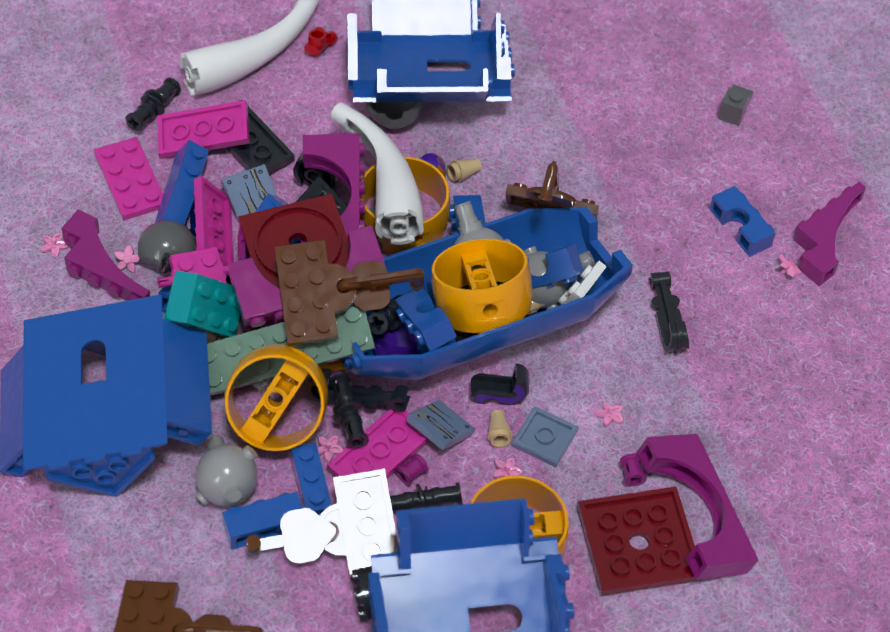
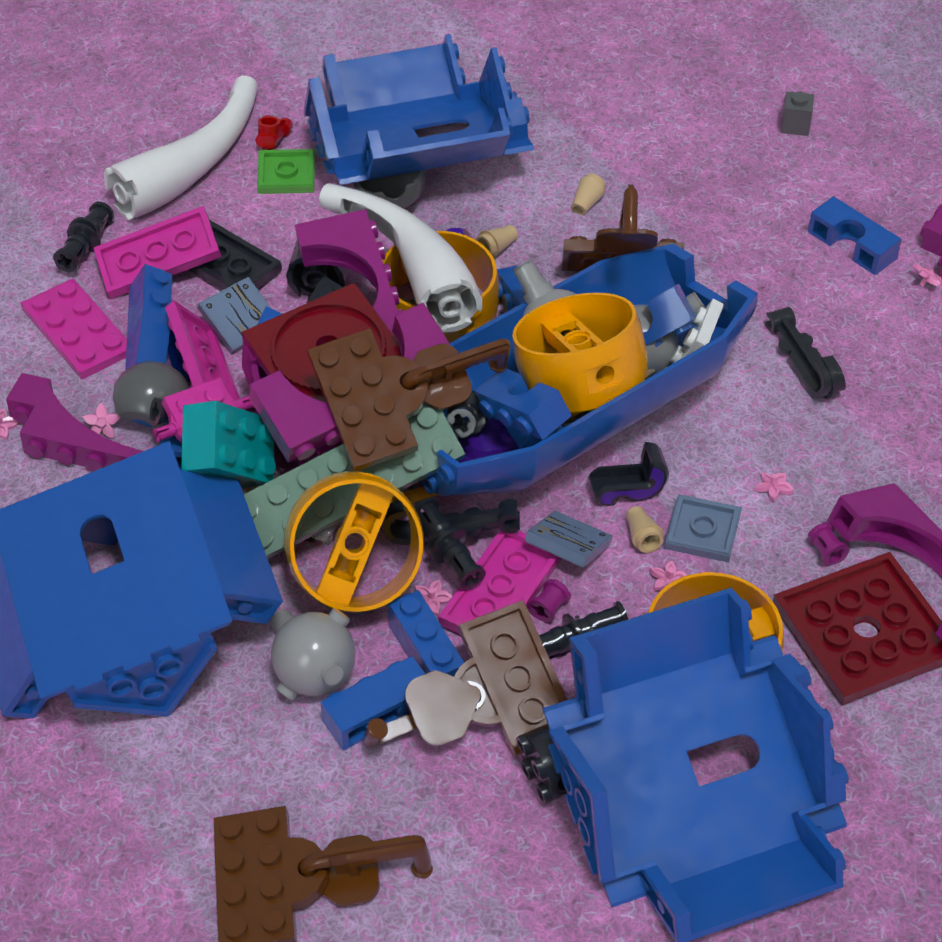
camera: 10 degrees left, 5 degrees down
(321, 77) = (286, 171): none -> bright green tile
(547, 142) = (589, 191): none -> tan cone

